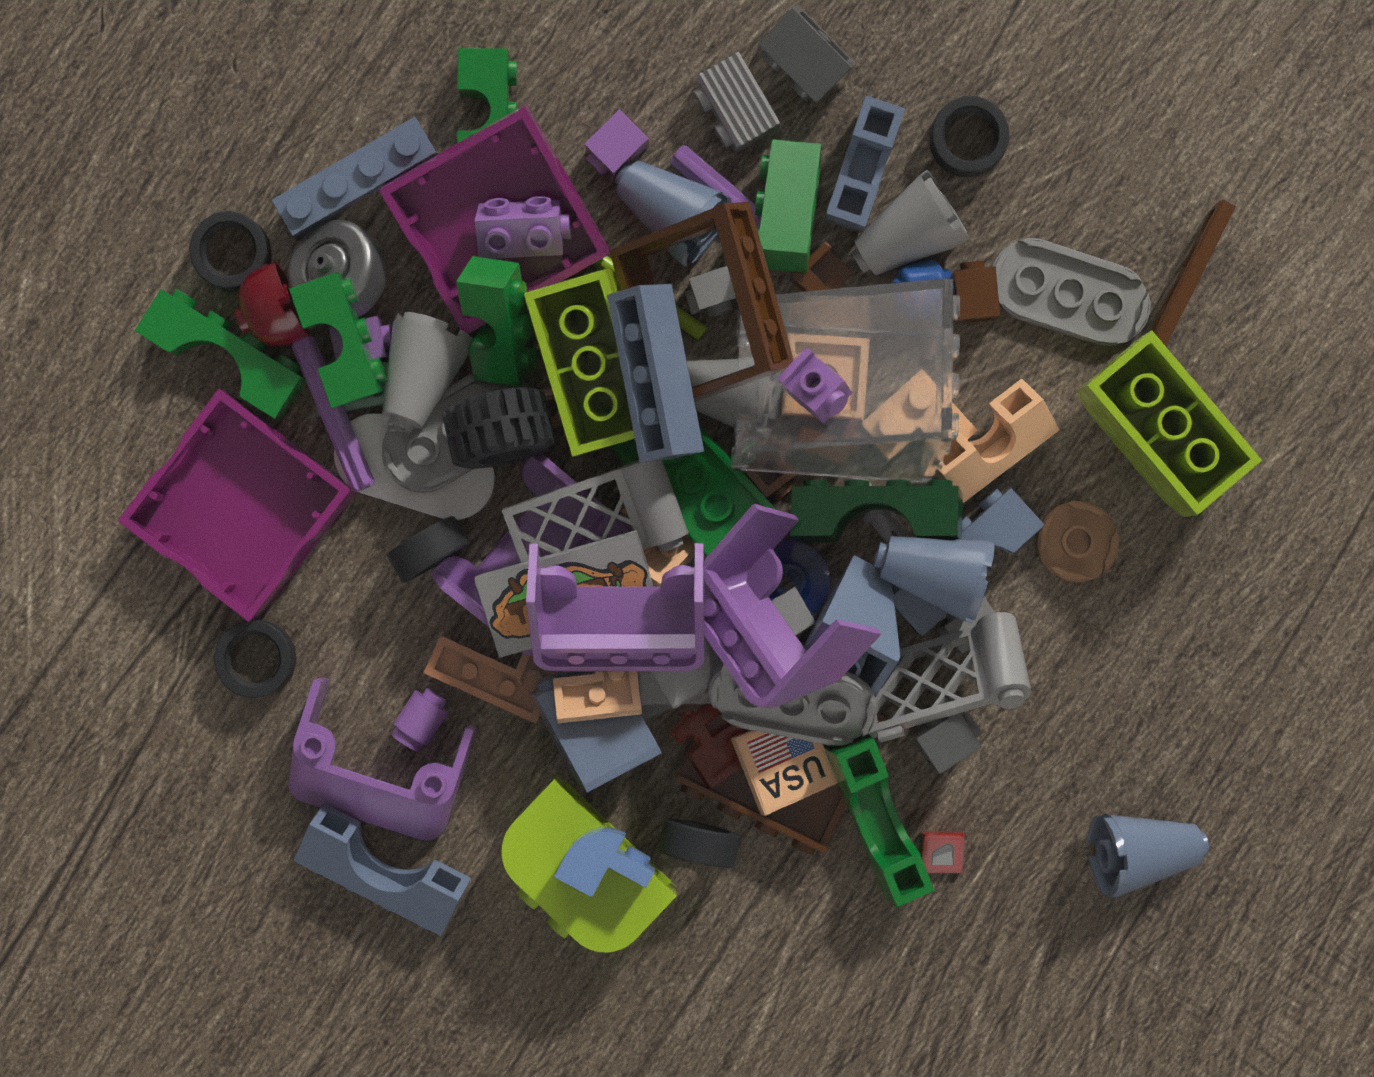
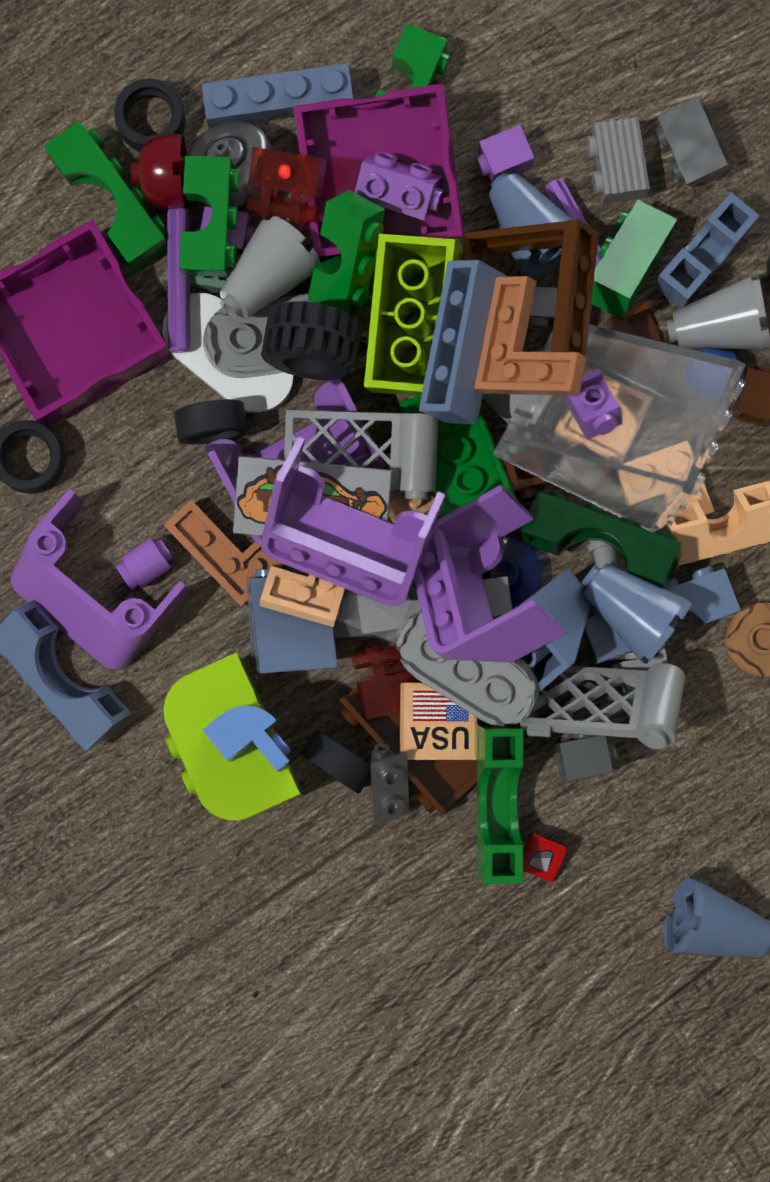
camera: 25 degrees right, 5 degrees down
(404, 262) = (290, 173): none -> clear red plate
(704, 380) = (503, 363): none -> nougat plate
(760, 844) = (389, 784): none -> flat silver hinge

